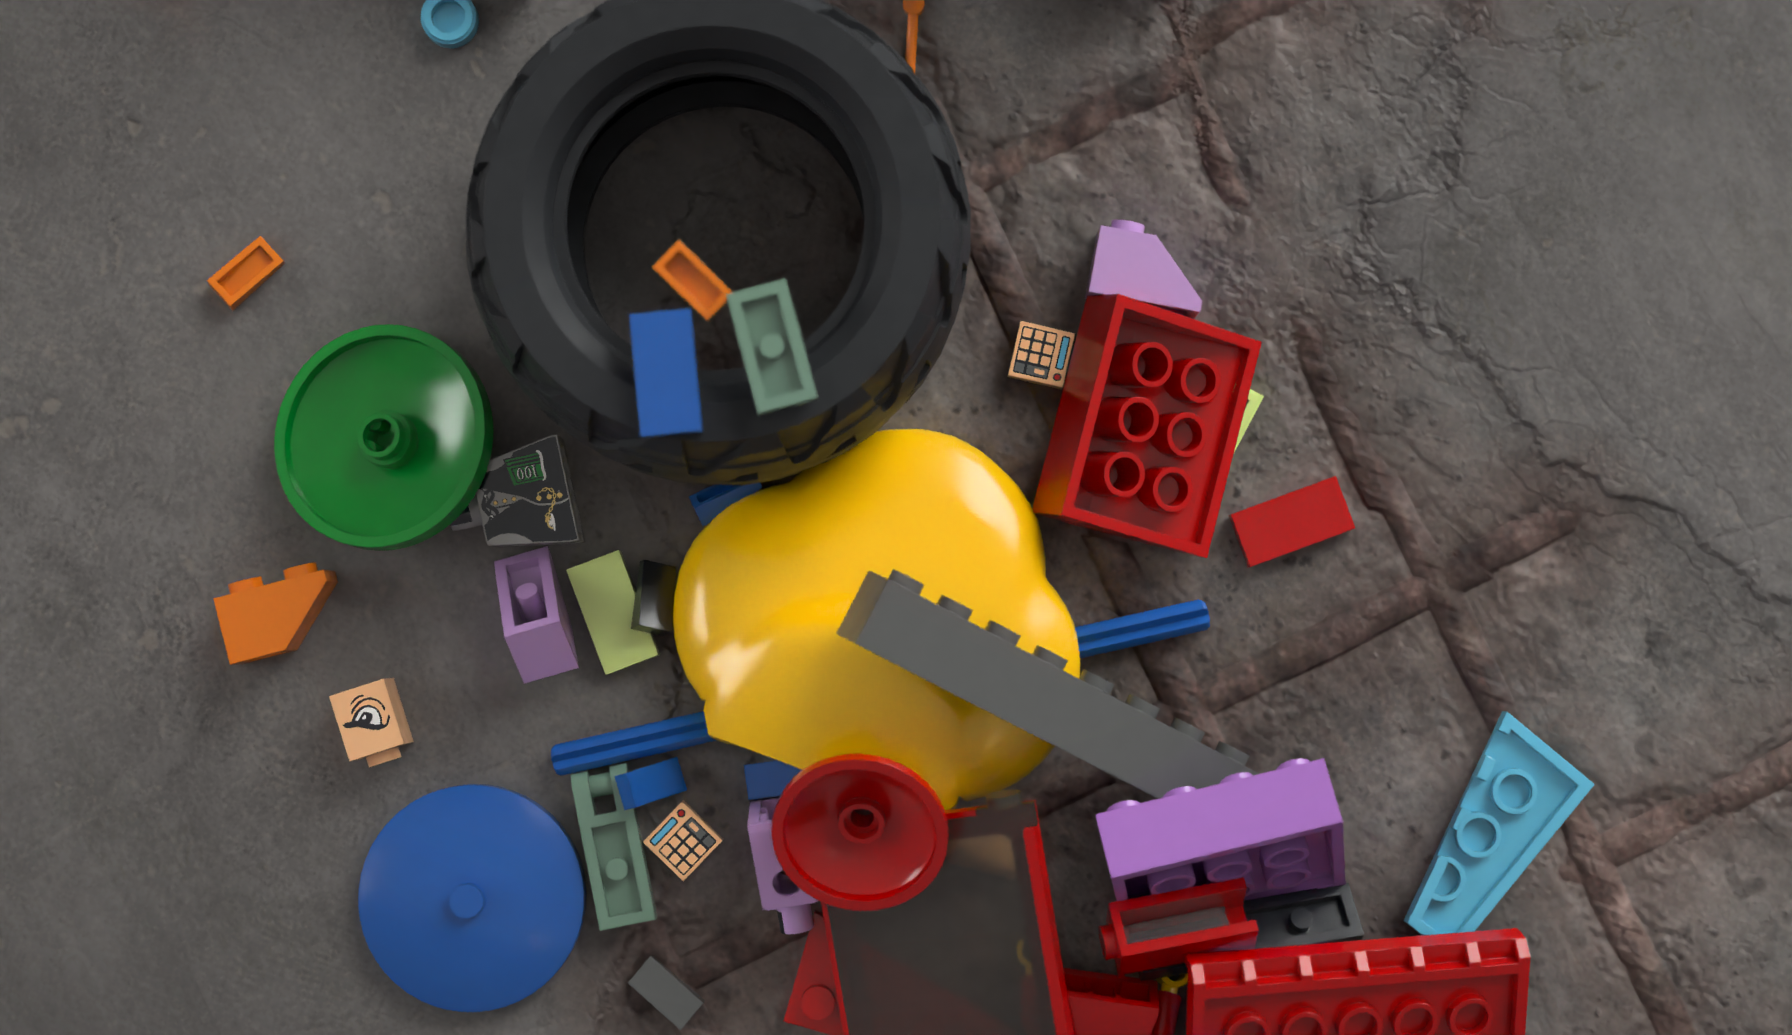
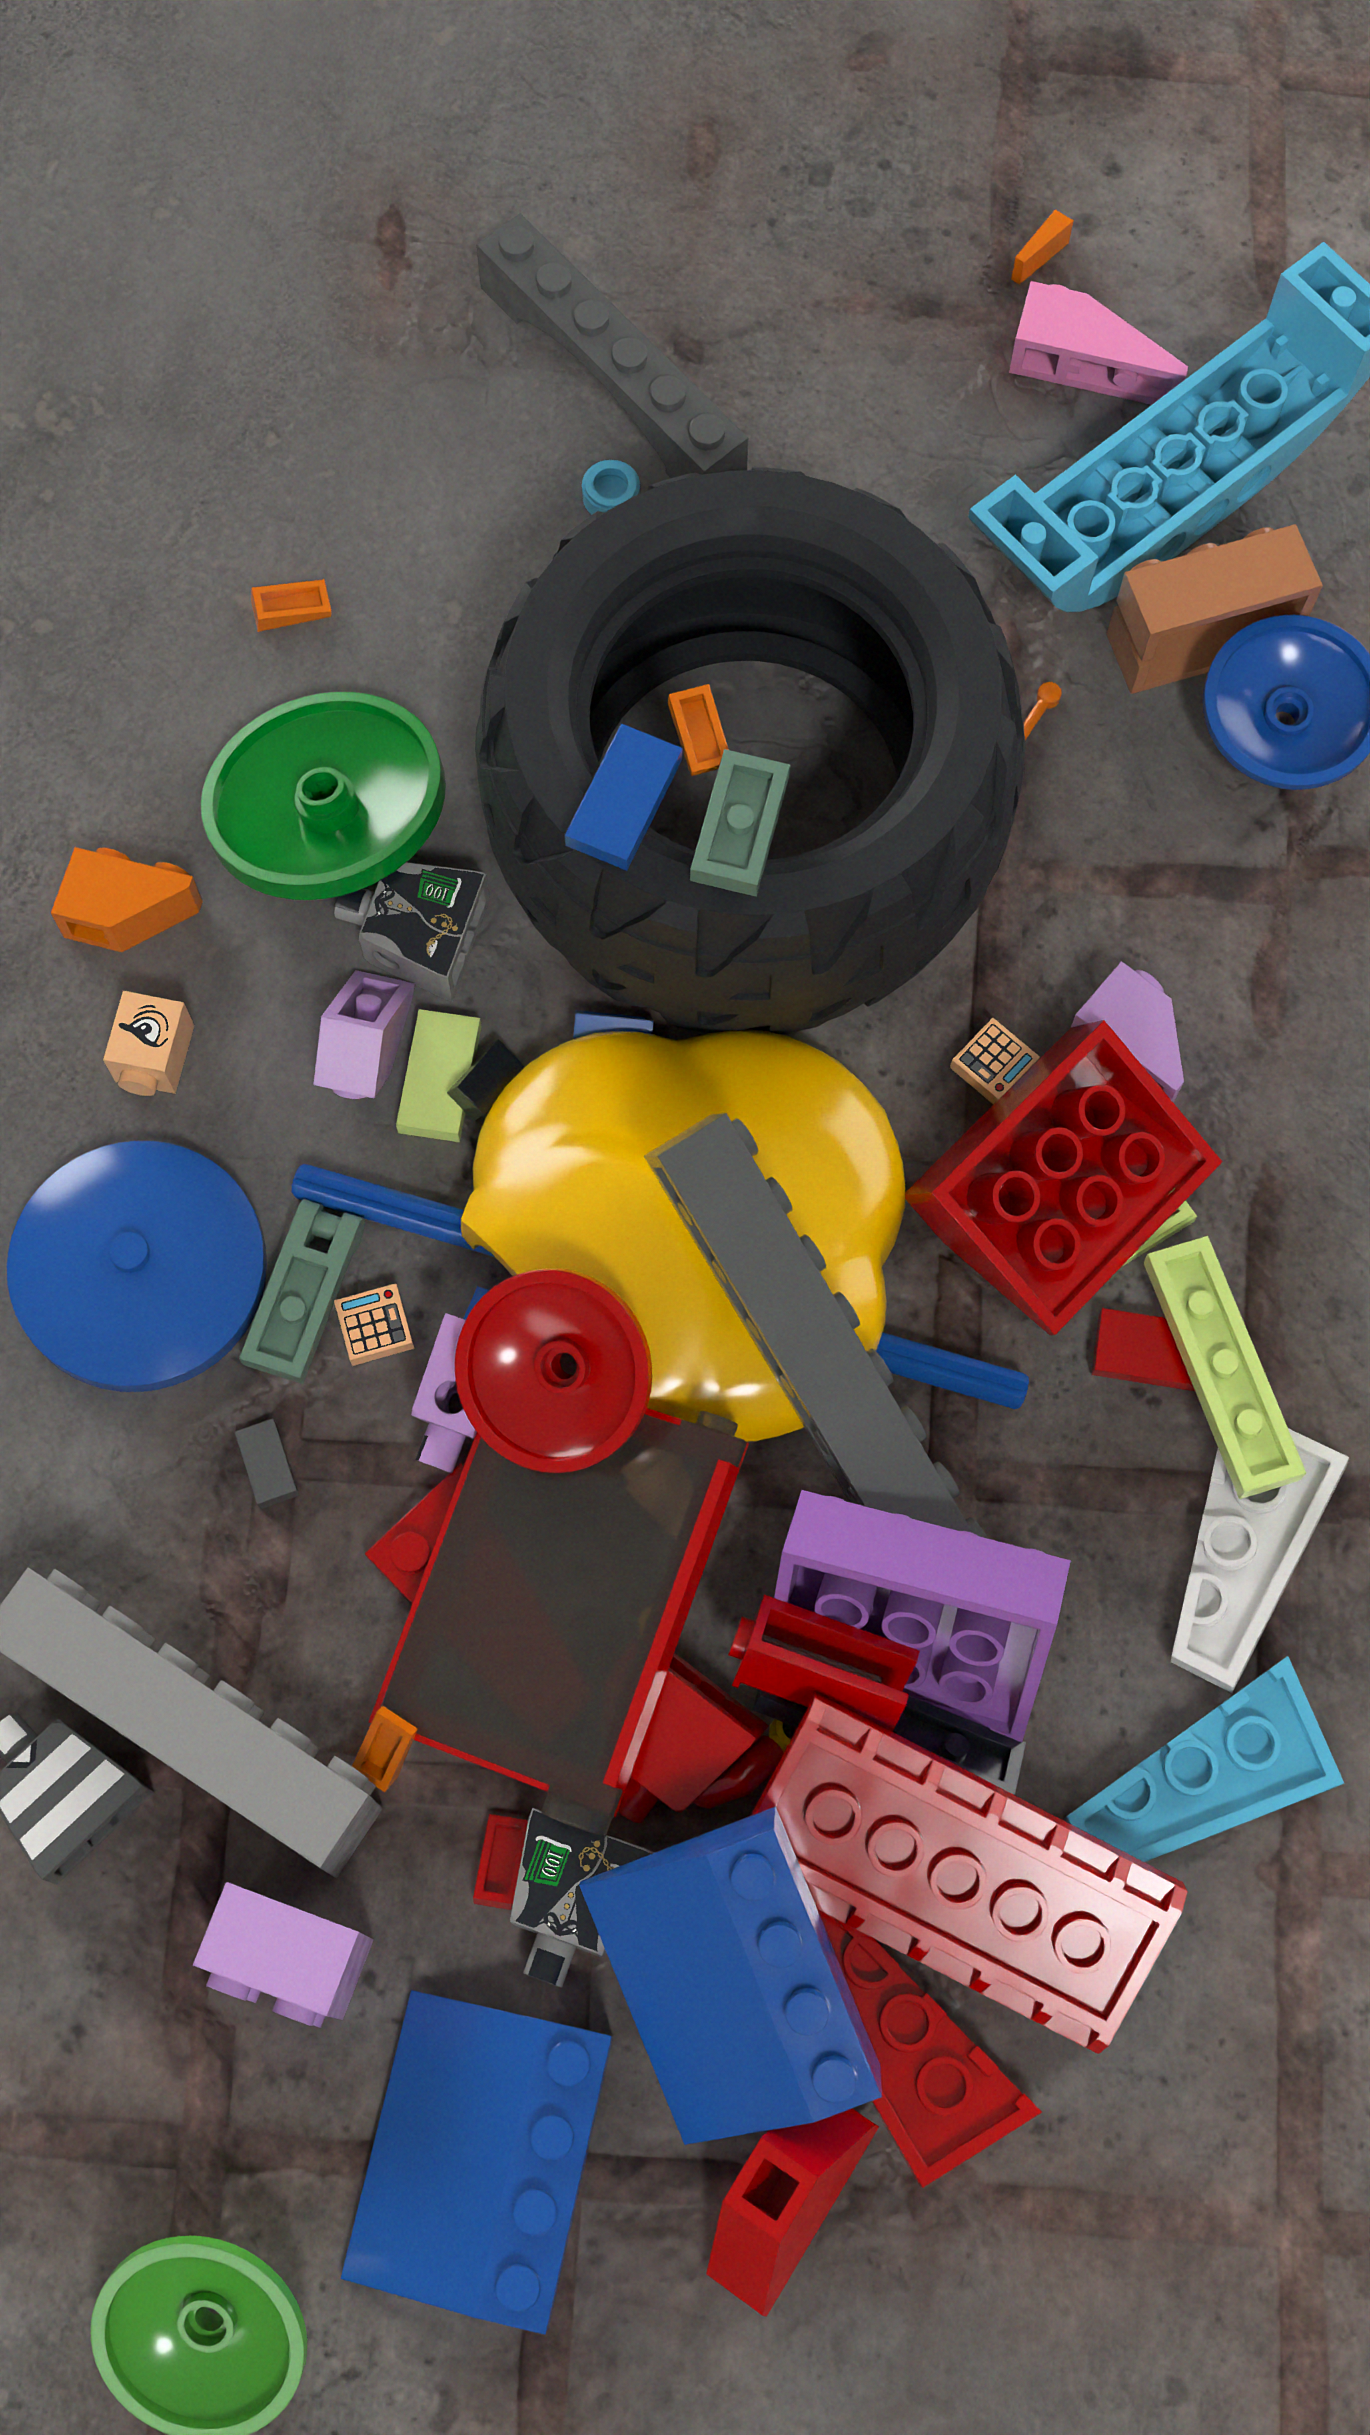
camera: 30 degrees right, 15 degrees down
(650, 783) = (376, 1247): blue piece -> none
(1349, 516) = (1224, 1368): none -> yellowish green plate
(1433, 627) = (1246, 1561): none -> white wing

